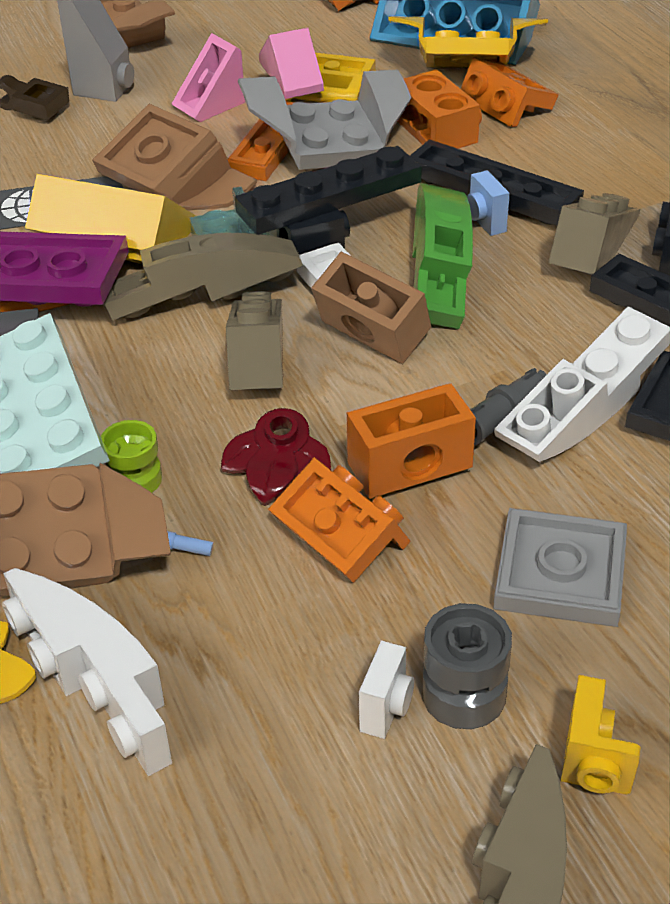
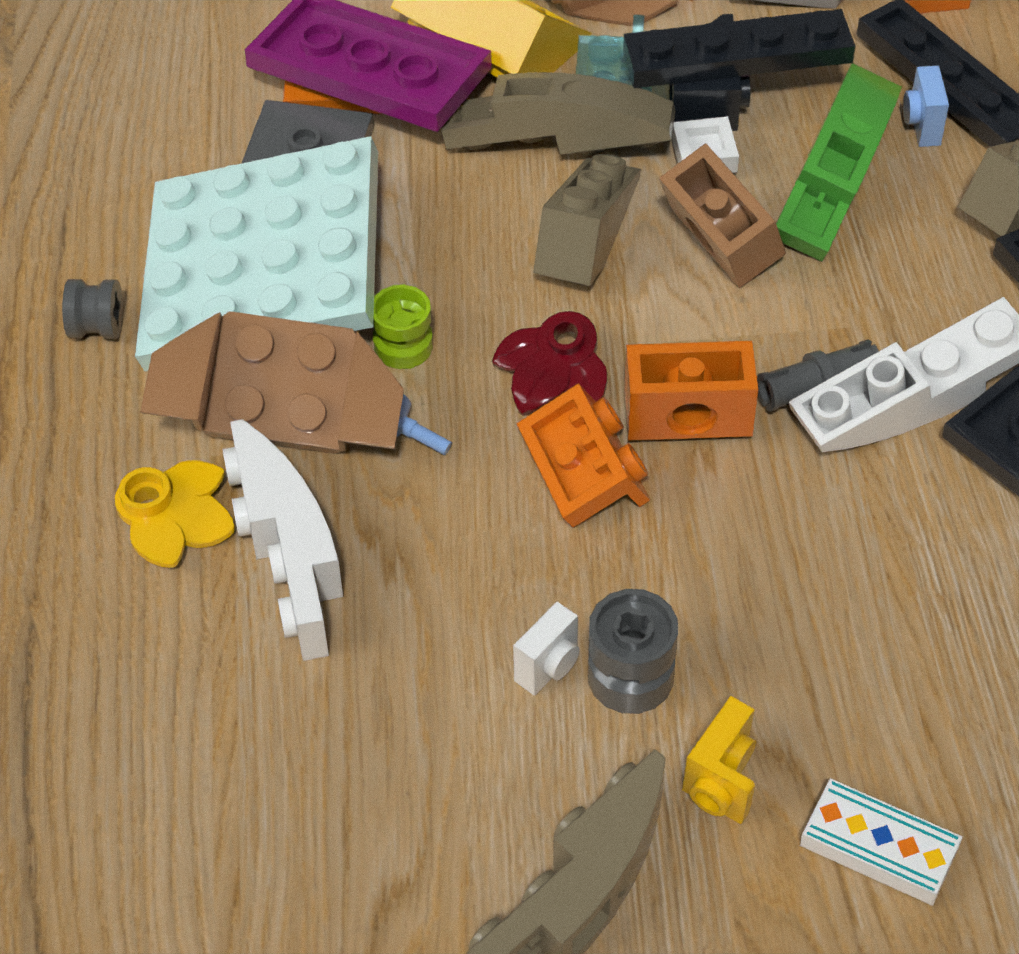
camera: 20 degrees right, 10 degrees up
(562, 567) = (791, 574): light grey tile -> none

